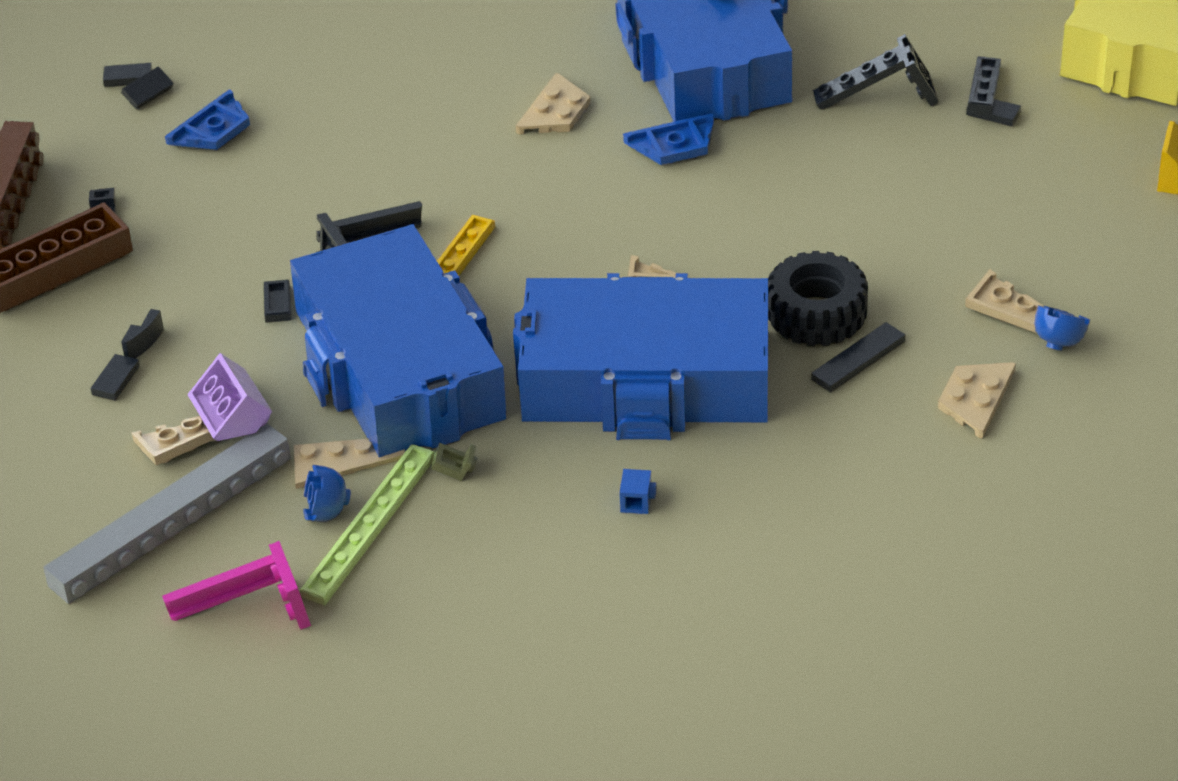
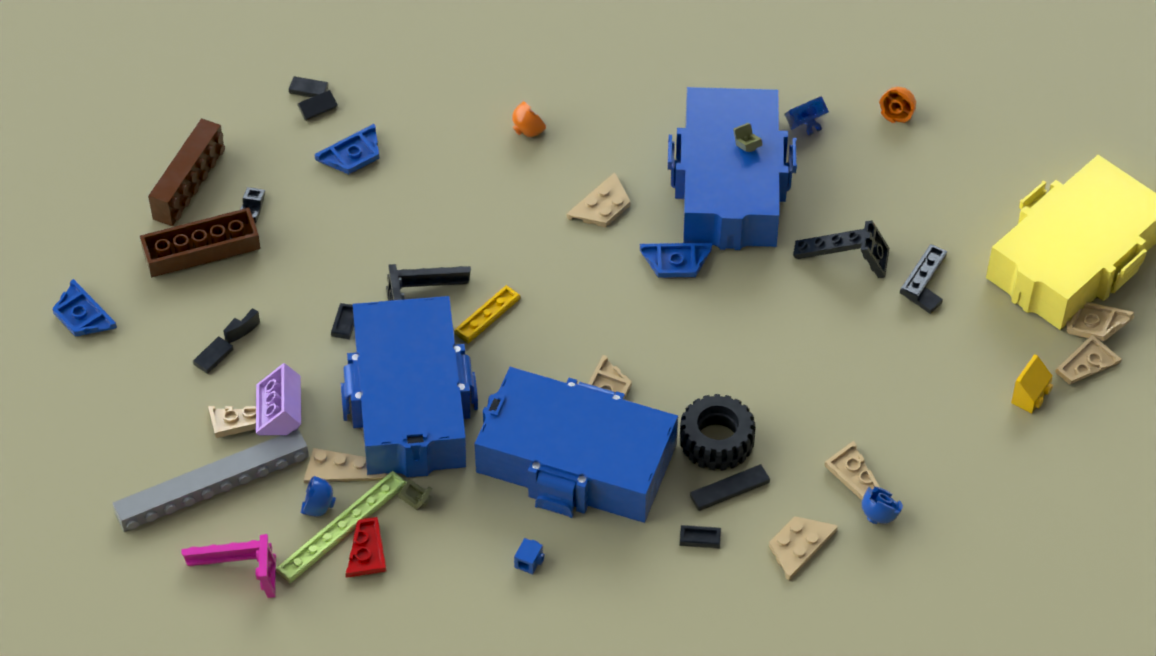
camera: 15 degrees right, 10 degrees up
(416, 538) = (367, 549): none -> red wing
(425, 43) = (526, 121): none -> orange cylinder
(846, 418) = (700, 536): none -> black tile

